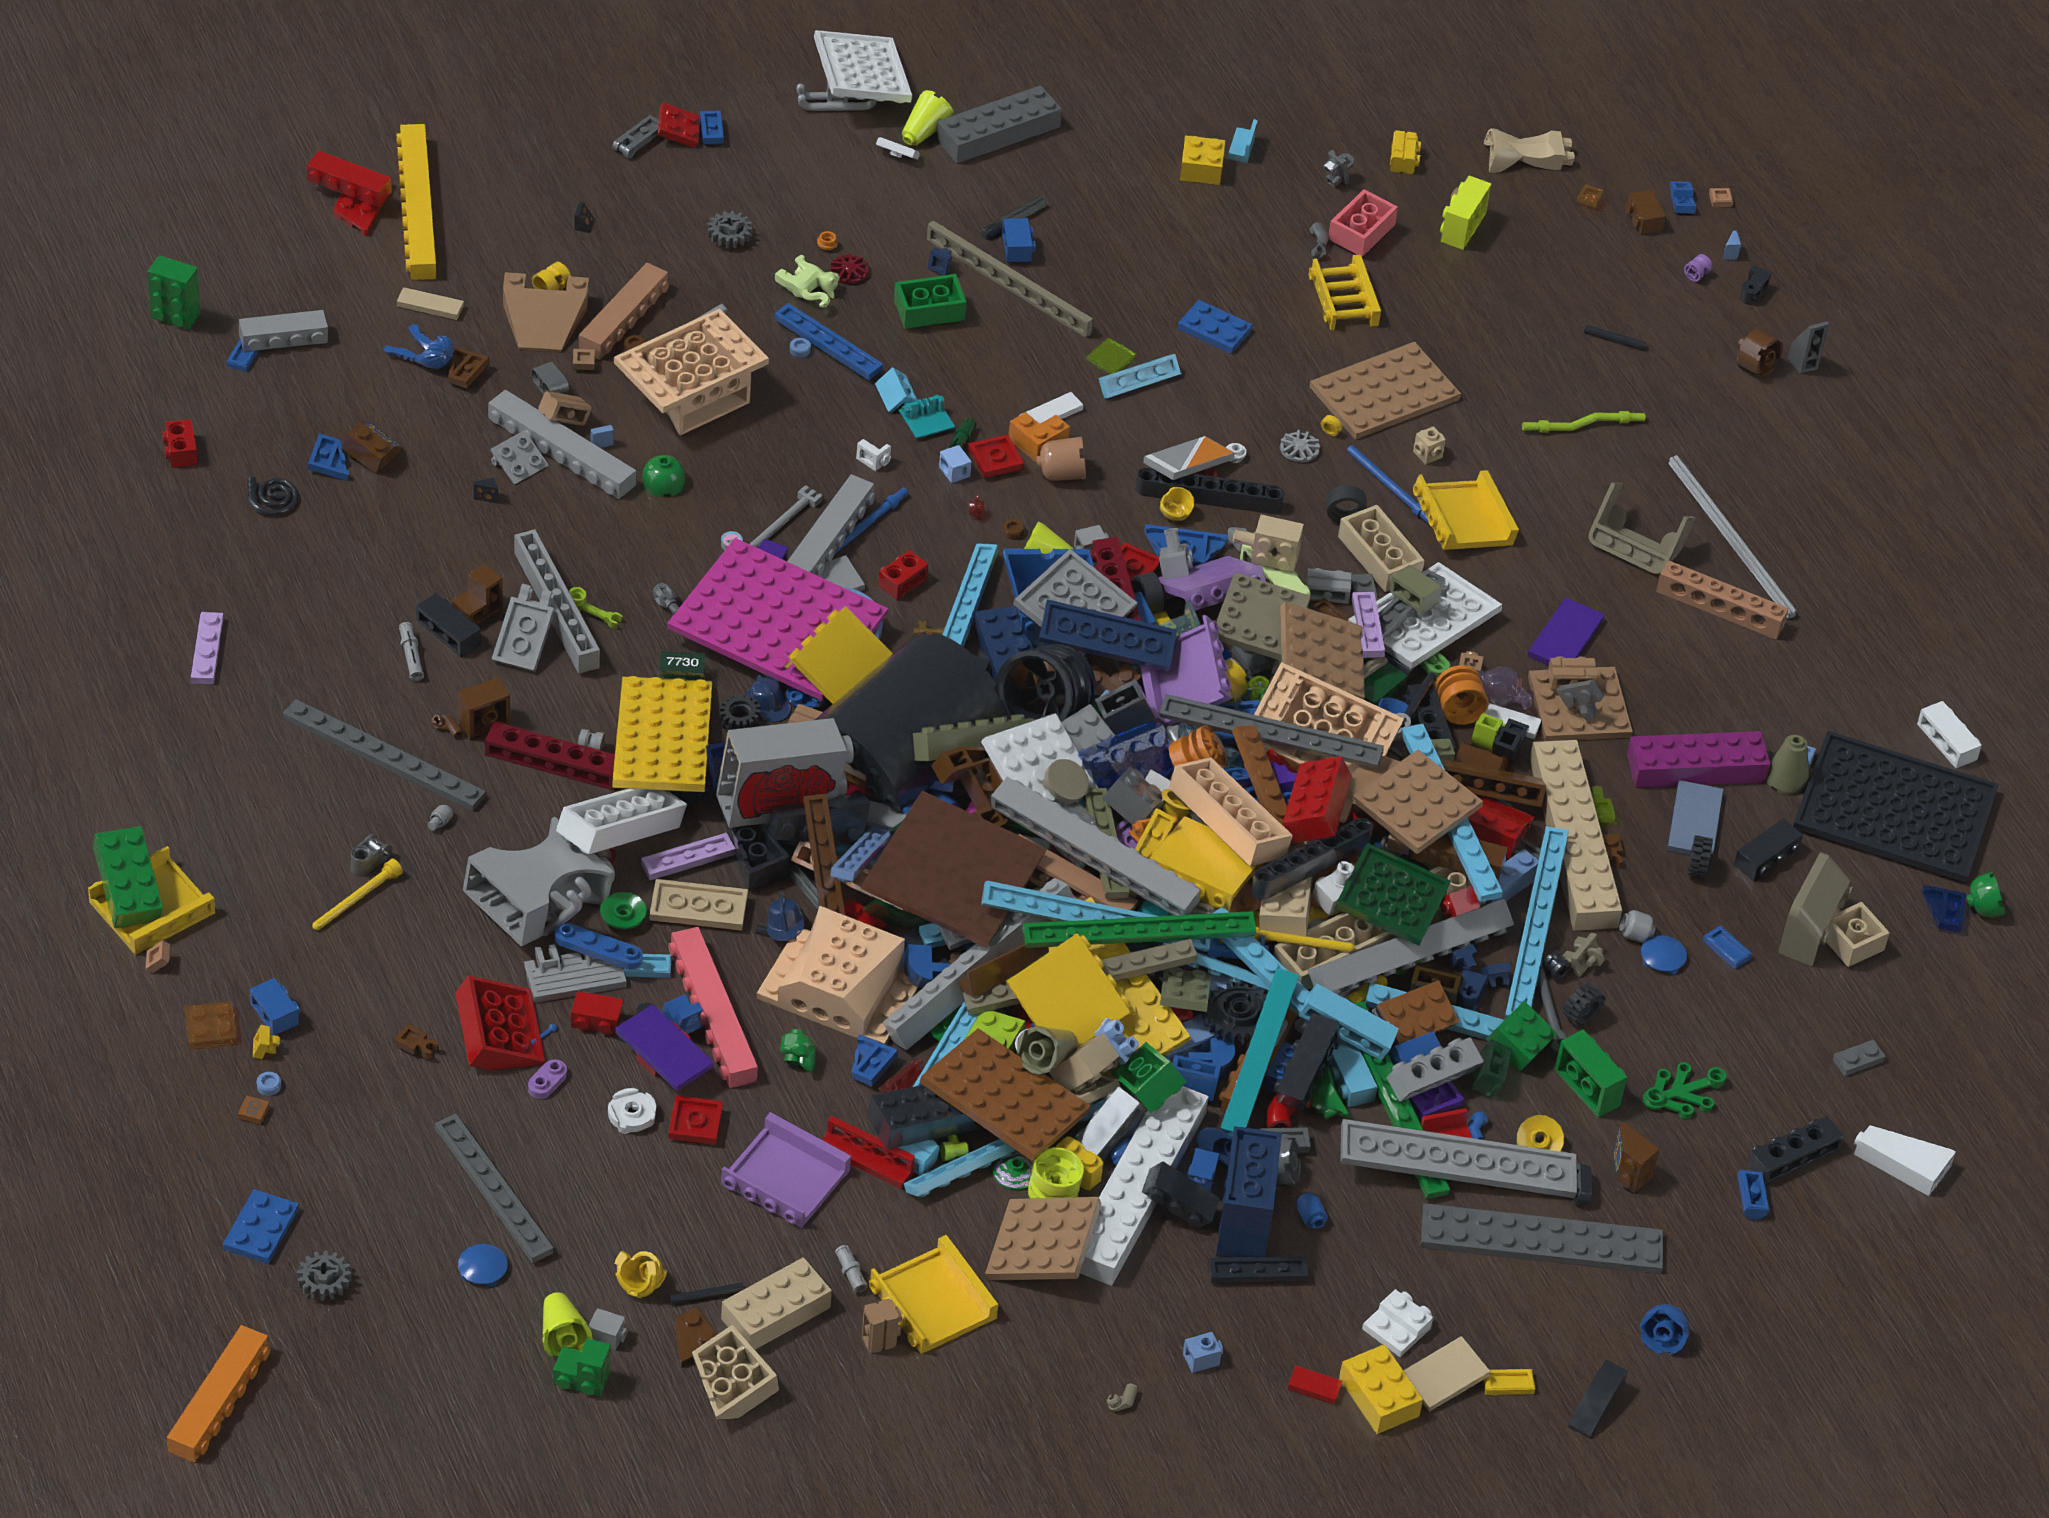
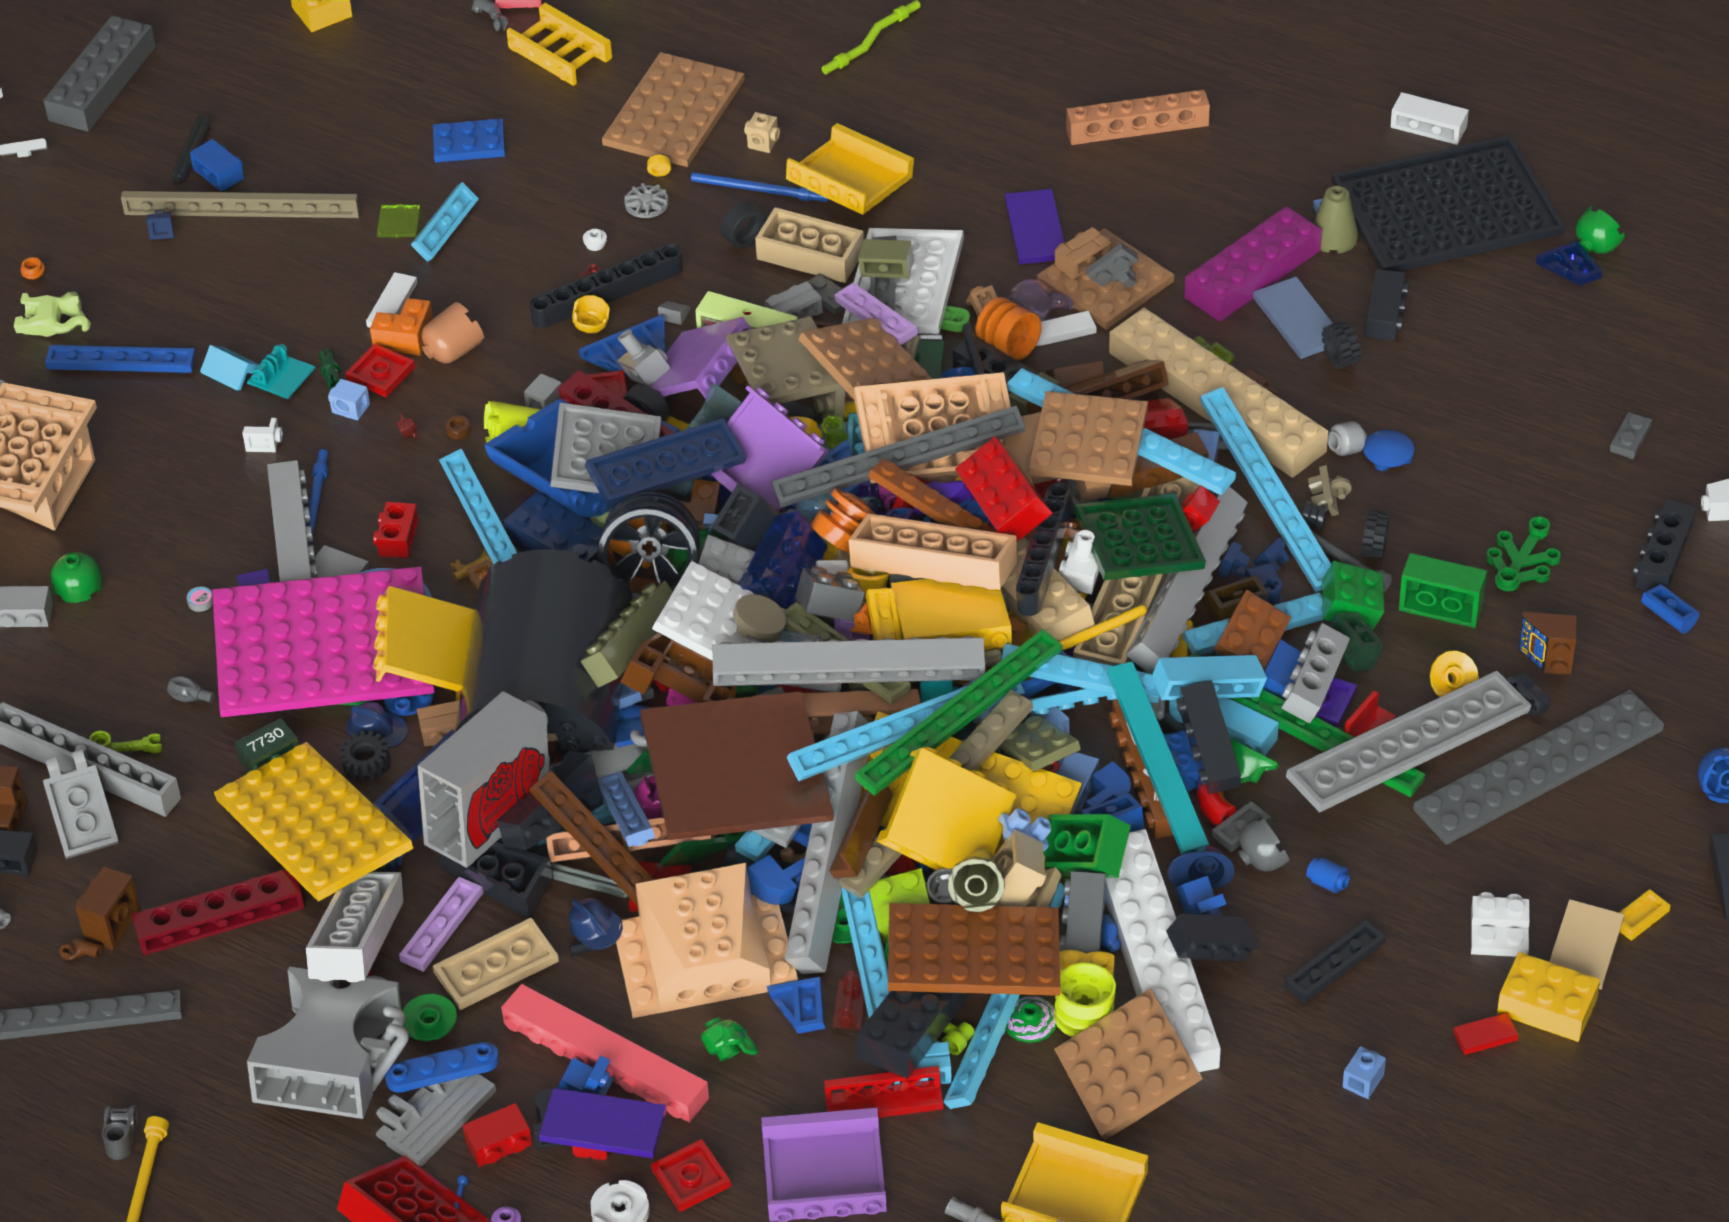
camera: 30 degrees left, 0 degrees up
(440, 817) = (156, 1045): light grey cylinder -> none
(593, 740) = (247, 868): light grey wheel -> none
(652, 966) = (510, 1050): medium azure tile -> none
(800, 347) = (96, 380): medium blue tile -> none
(806, 498) = (234, 517): light grey hinge -> none
(850, 268) = (77, 281): dark red wheel -> none
(924, 117) = (26, 103): neon yellow cone -> none
(930, 301) = (187, 265): green brick -> none
(1119, 1403) = (1339, 1167): dark tan arm -> none
(1188, 457) = (562, 266): tile -> none
(1234, 1012) = (1101, 735): black gear -> none
(1249, 1193) = (1279, 892): dark blue window -> none
(1273, 543) = (733, 289): tan brick -> none
(1475, 1123) = (1386, 701): blue arm -> none
(1486, 731) = (1060, 348): lime brick -> none
(1510, 739) = (1084, 343): black brick -> none
(1612, 537) = (1043, 115): dark tan windscreen -> none
(1727, 947) = (1432, 409): blue tile -> none
(1731, 535) = (1082, 58): light grey axle -> none
(1813, 909) = (1480, 307): dark tan windscreen -> none
(1856, 934) = (1525, 330): tan brick -> none

